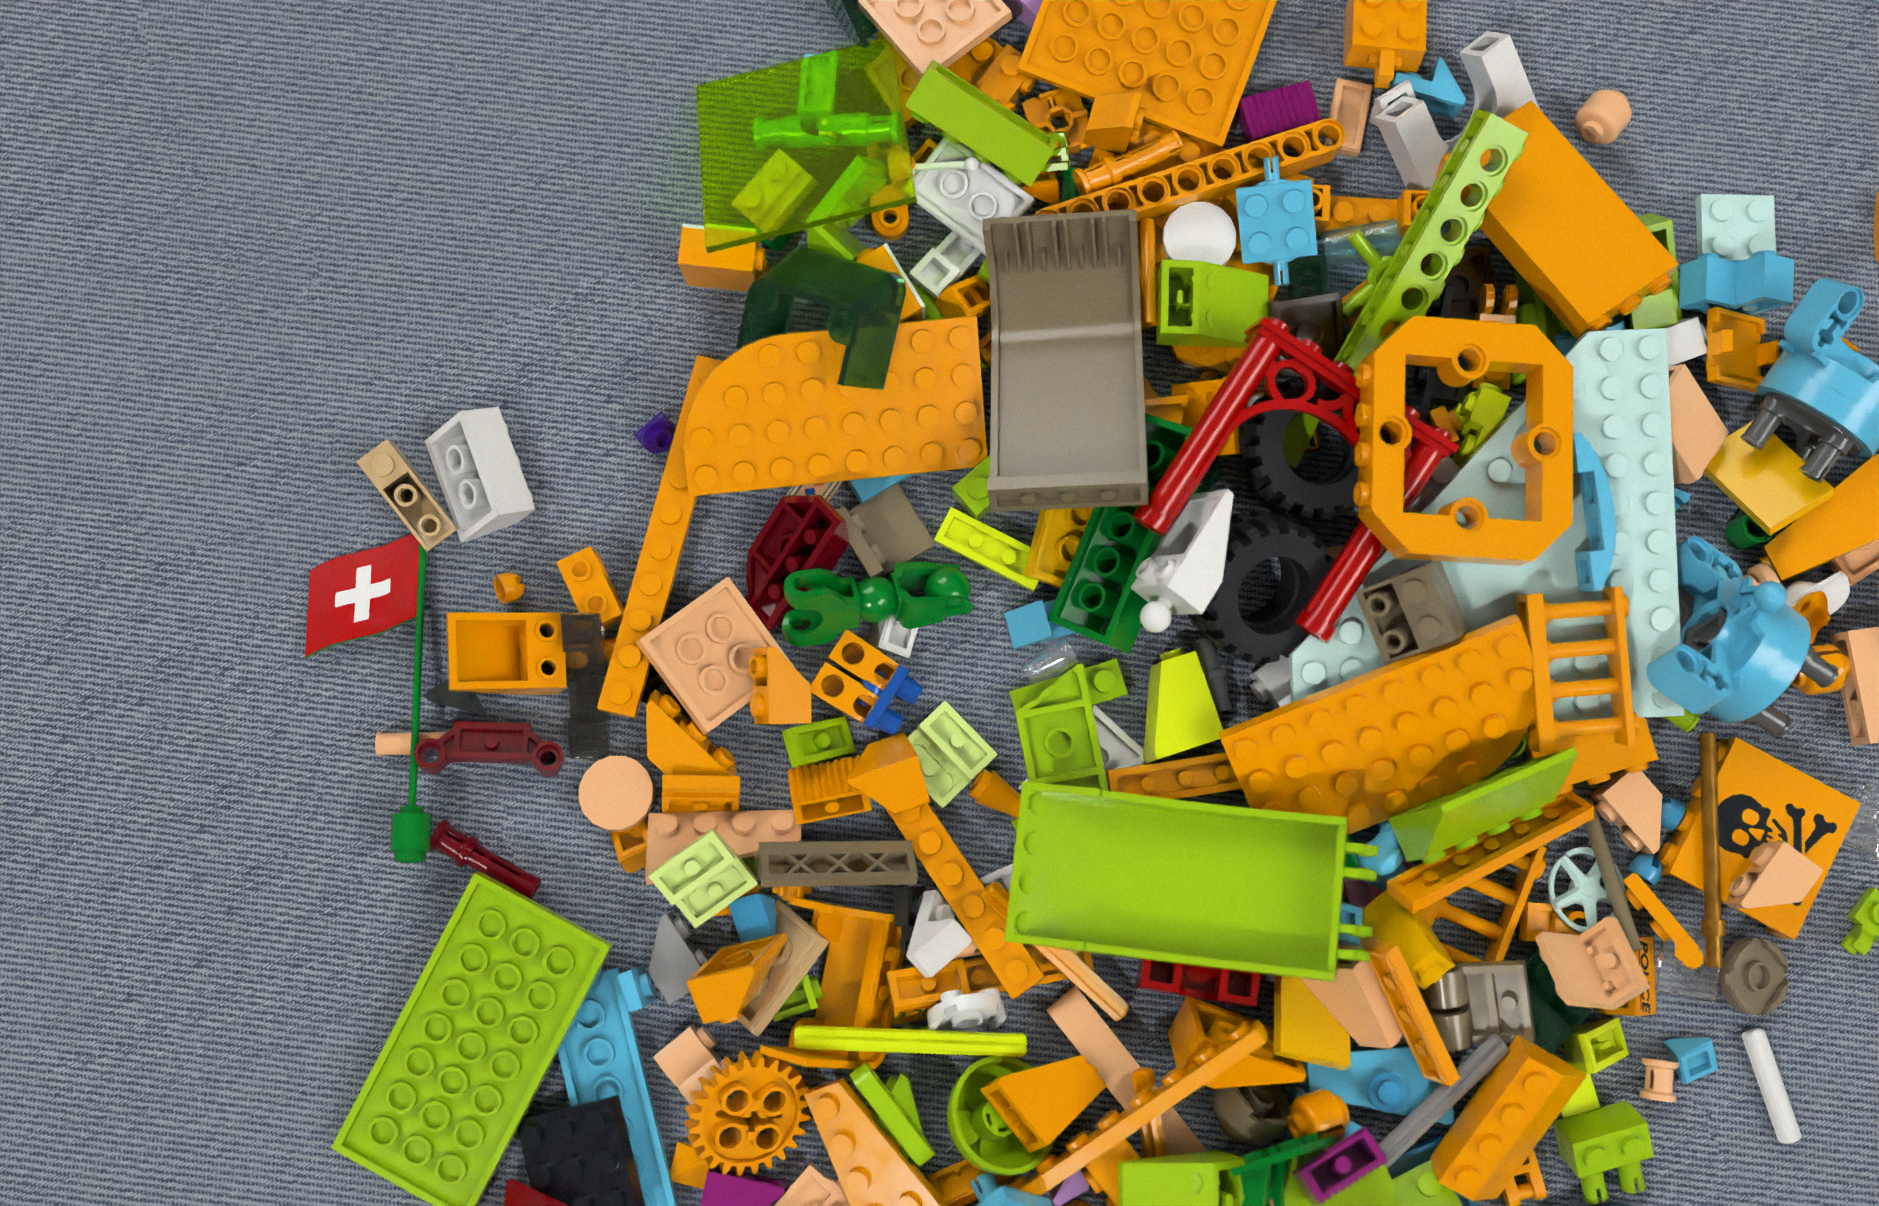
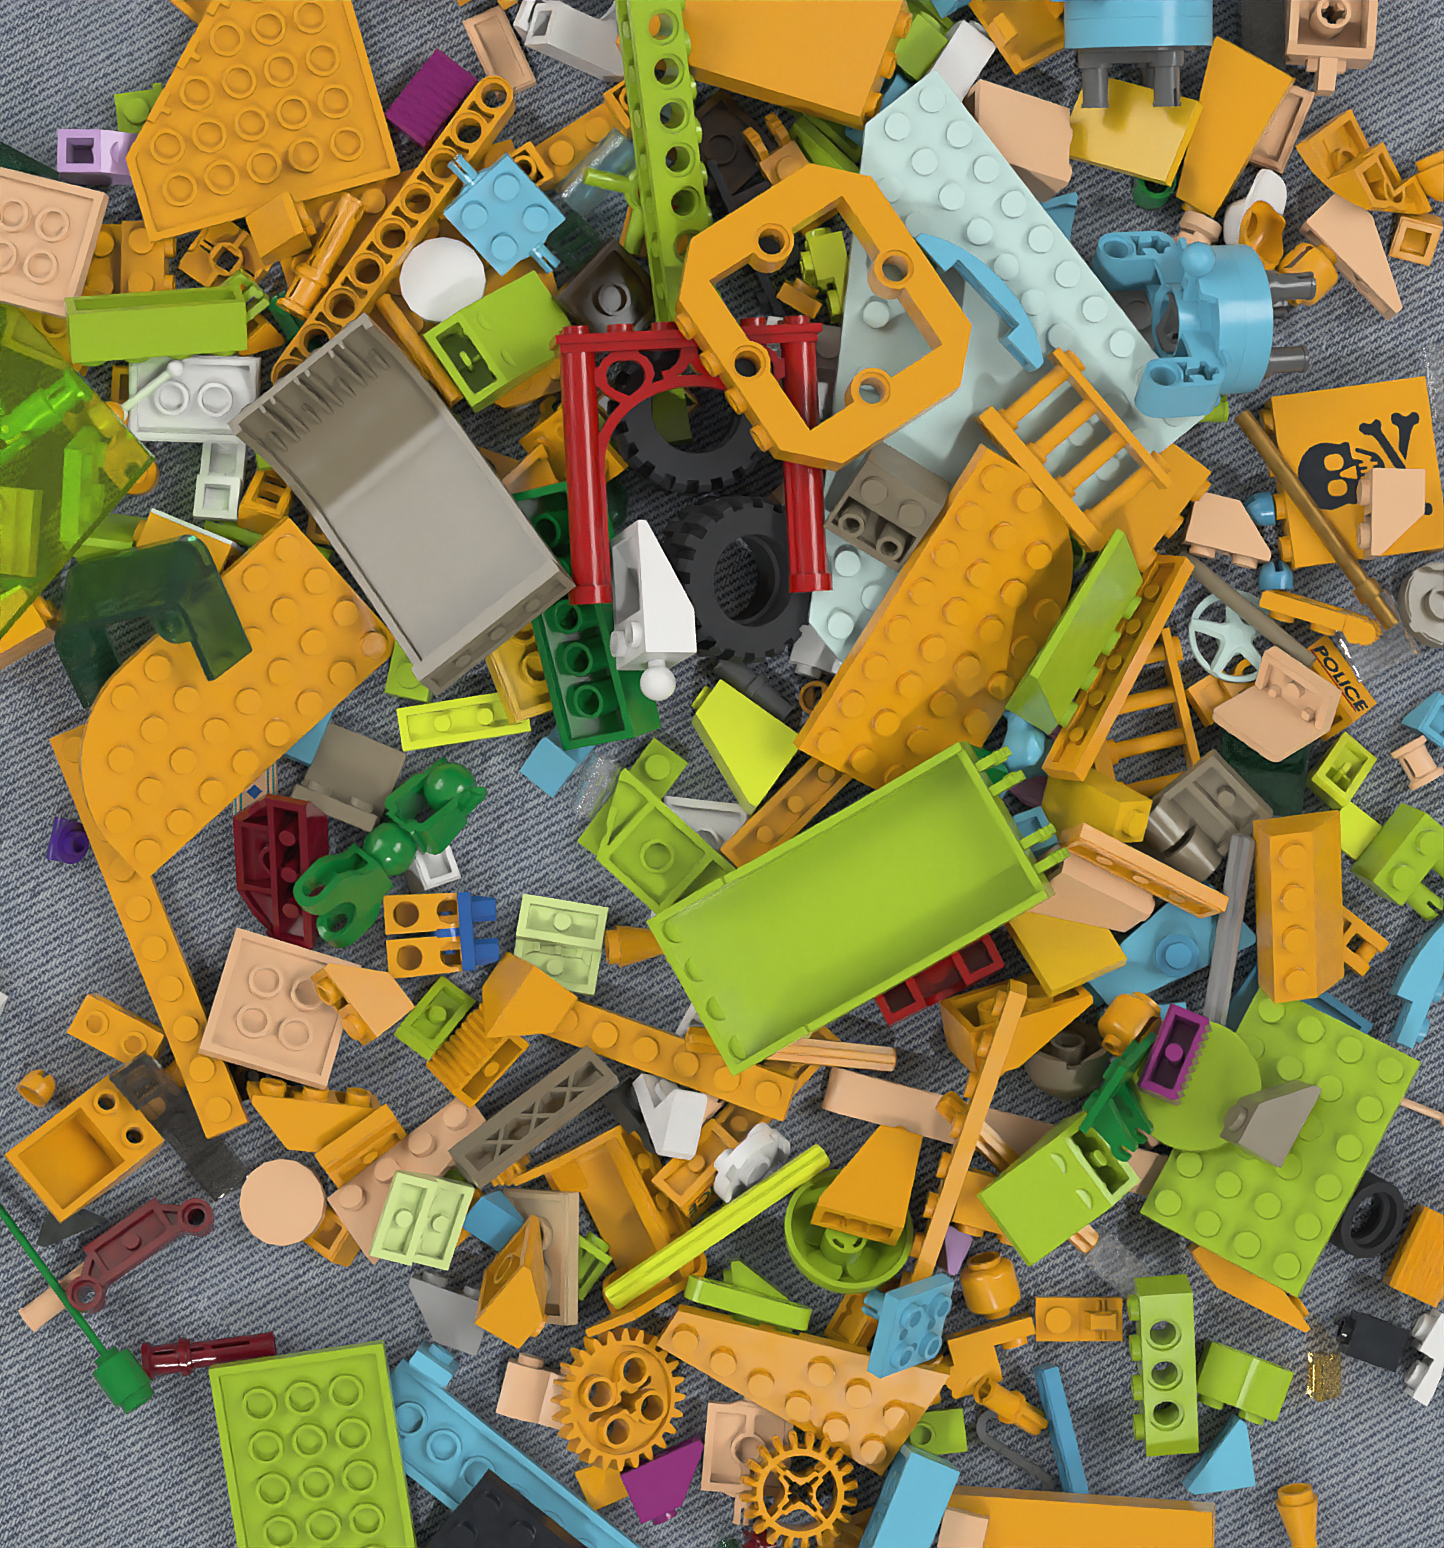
camera: 35 degrees left, 5 degrees up
(1247, 707) = (807, 695): none -> light orange hinge

